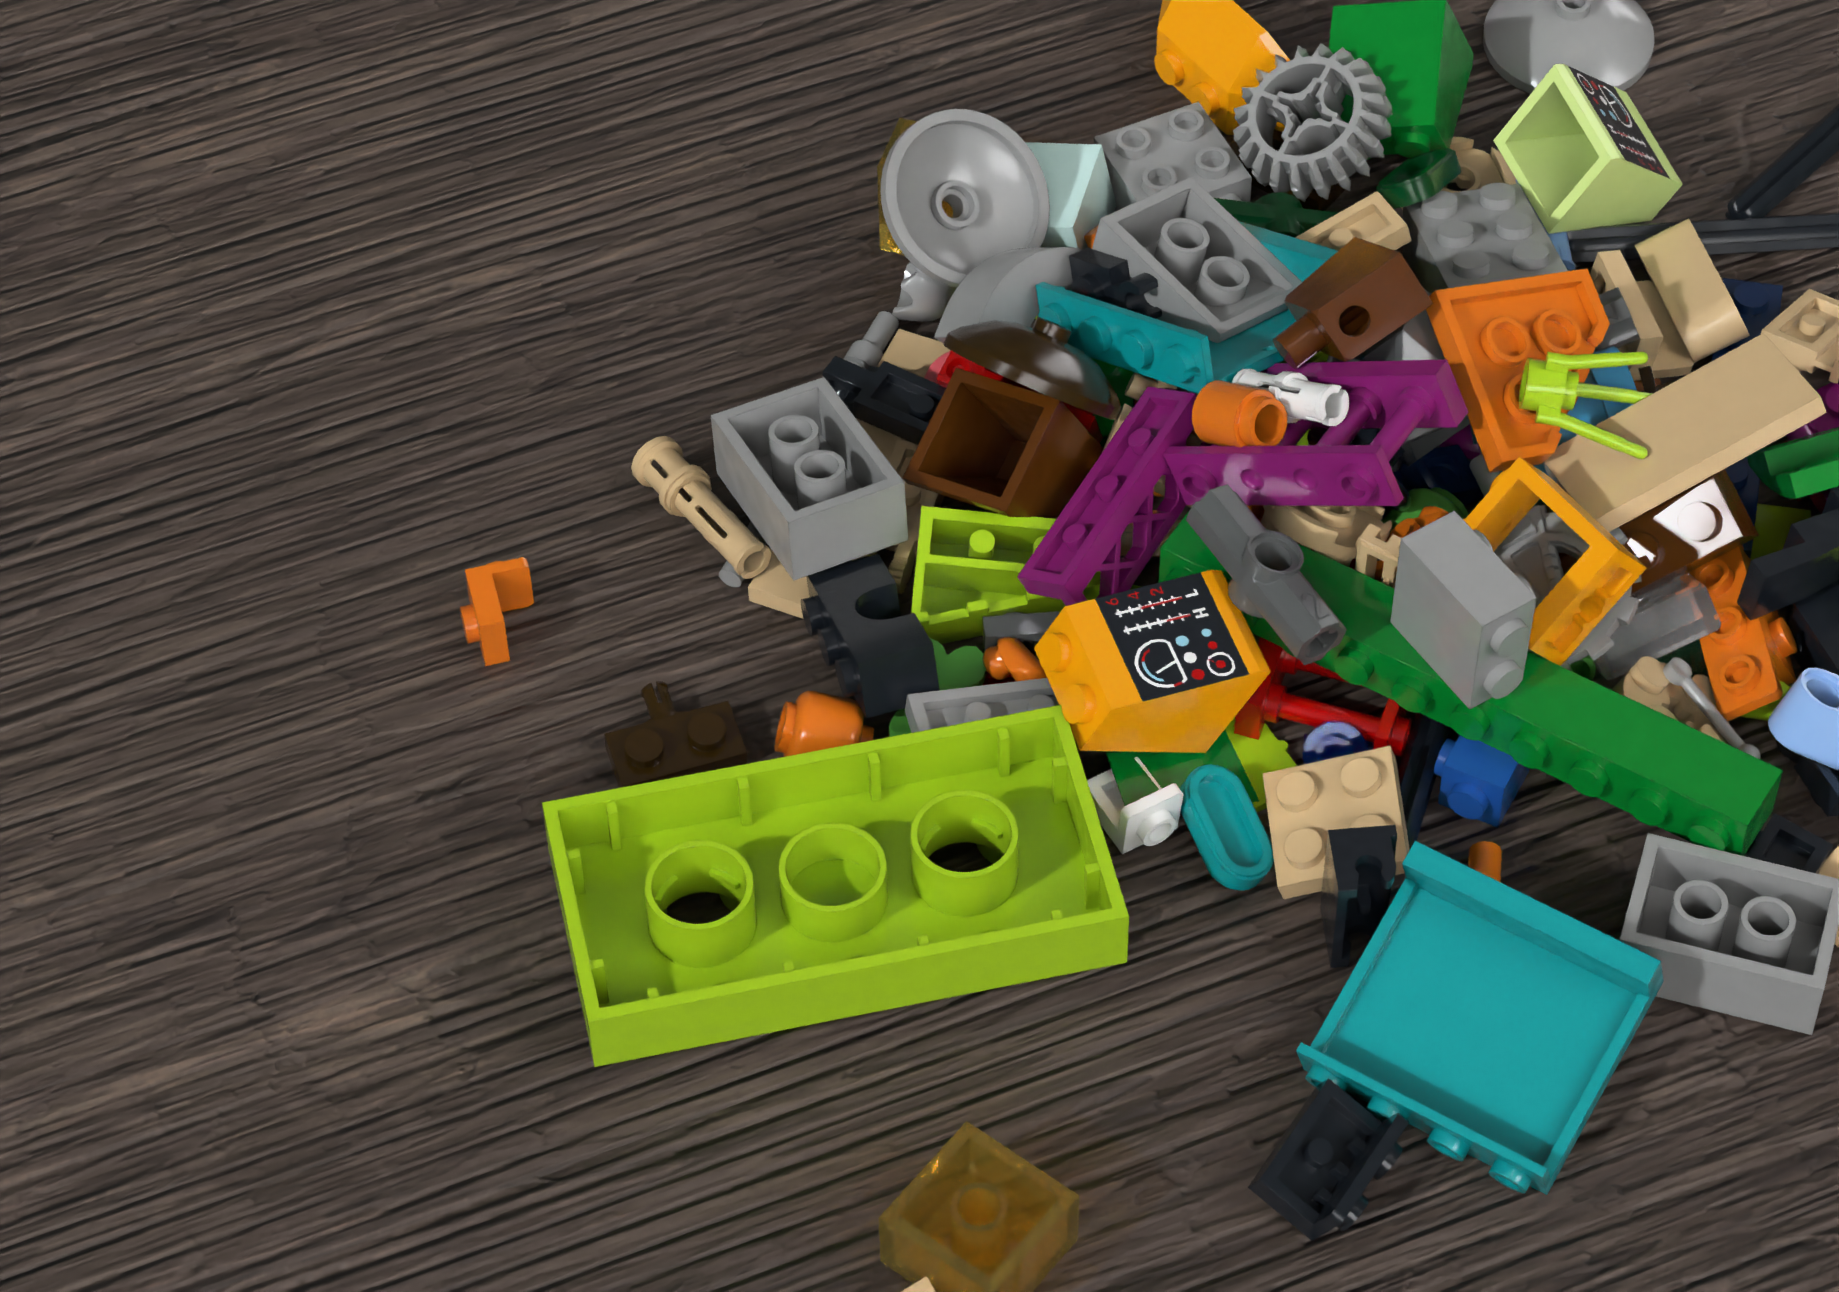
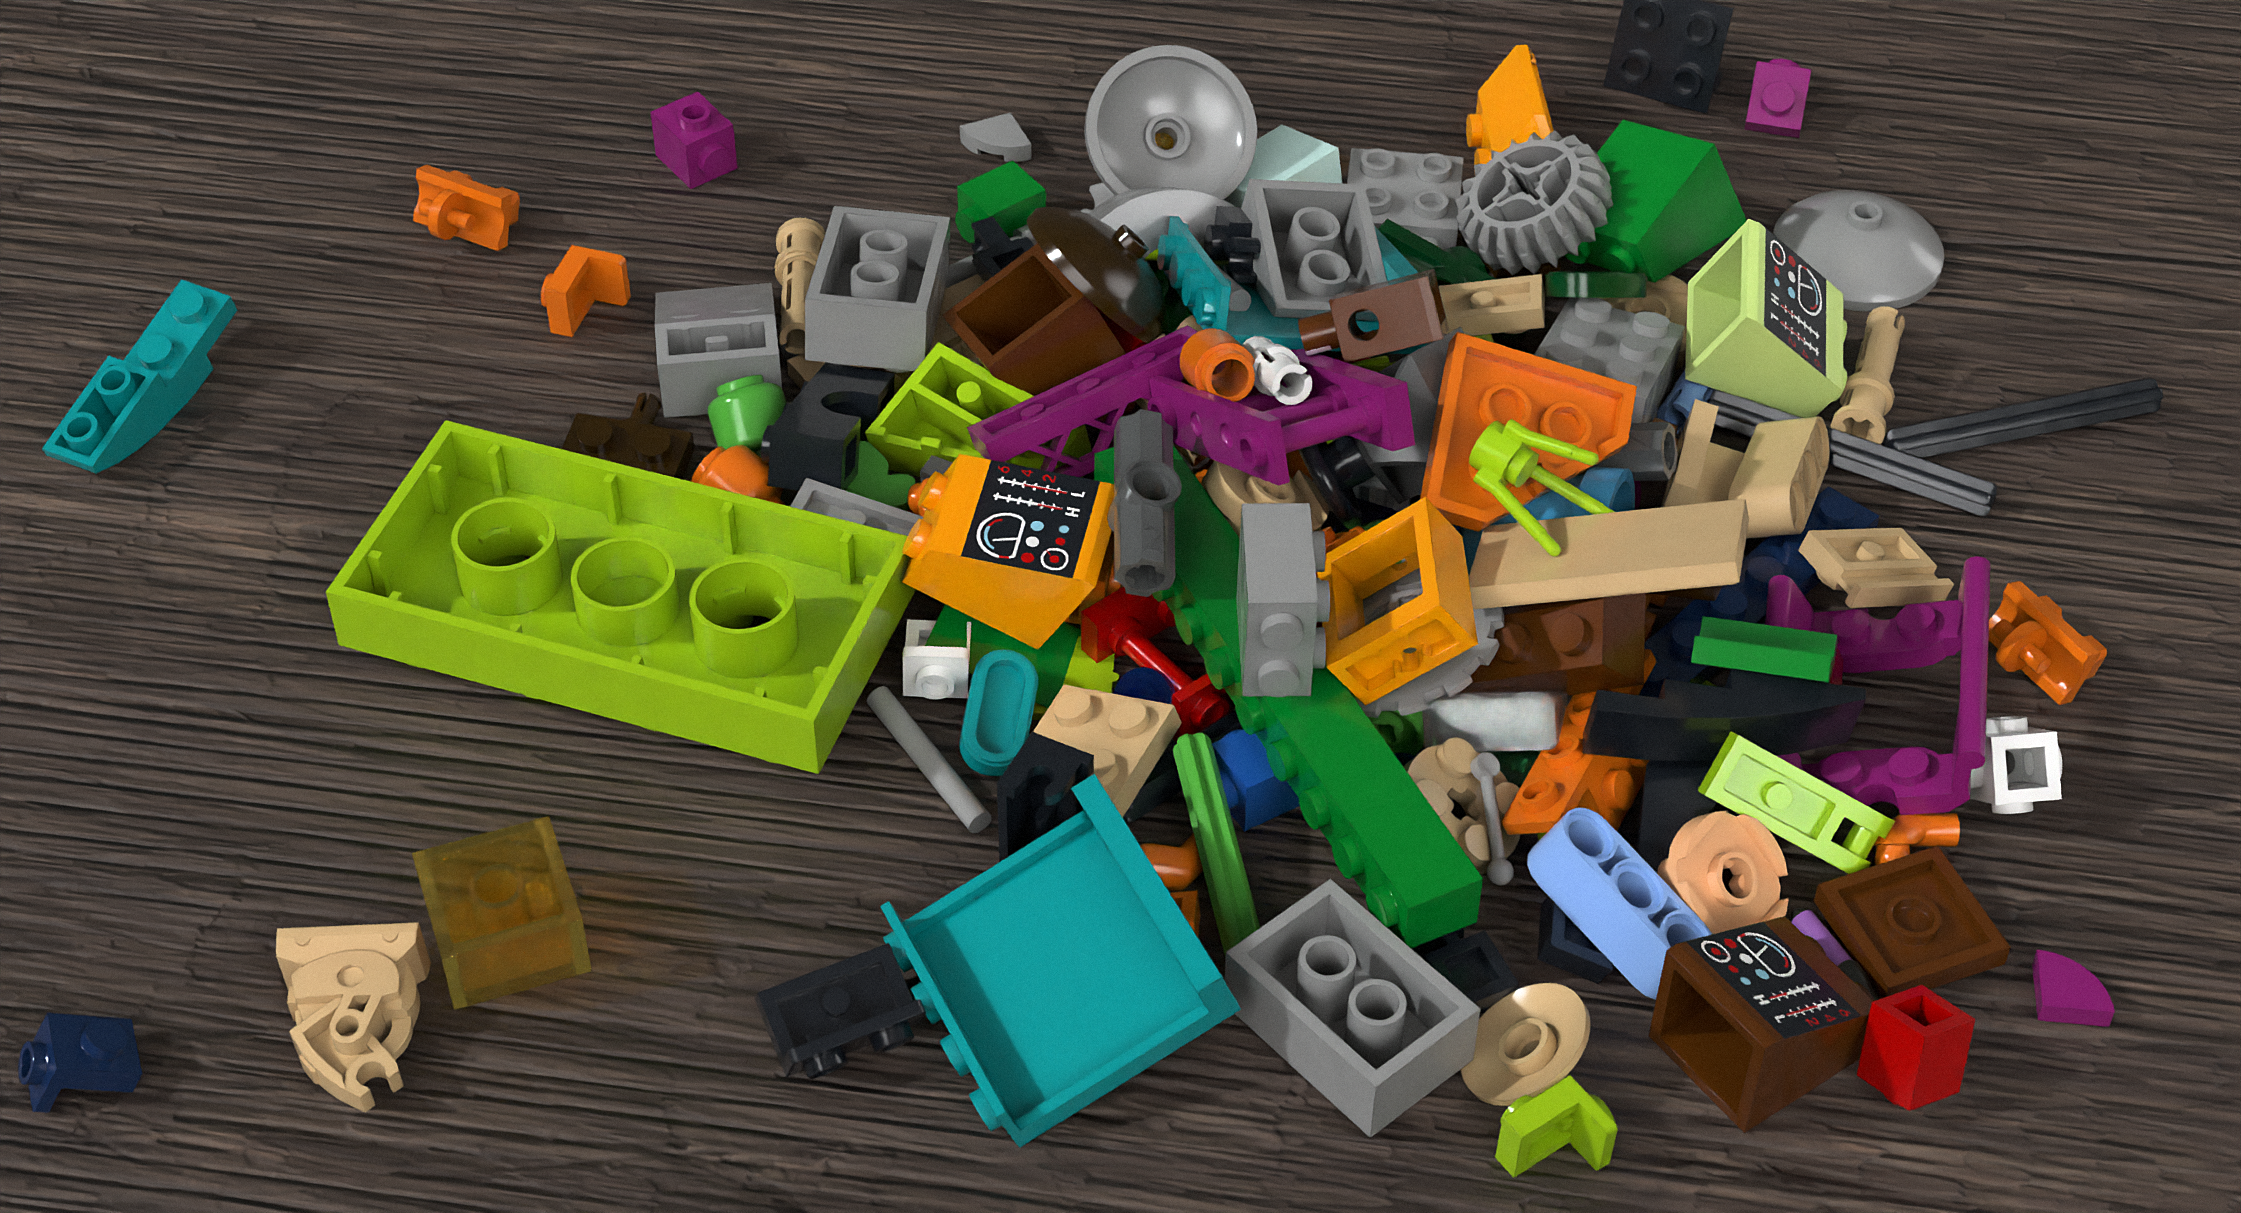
camera: 30 degrees right, 5 degrees down
(157, 906) = (139, 395): none -> teal slope
(301, 579) = (464, 208): none -> orange hips
(464, 405) = (694, 140): none -> magenta brick
(679, 602) = (712, 340): none -> light grey slope
(740, 268) = (997, 136): none -> light grey tile
(778, 661) = (745, 411): none -> bright green head
(812, 336) = (1002, 193): none -> green brick
(1201, 902) = (929, 760): none -> light grey bar
(1507, 846) = (1215, 839): none -> bright green axle
(1694, 170) = (1868, 390): none -> tan pin

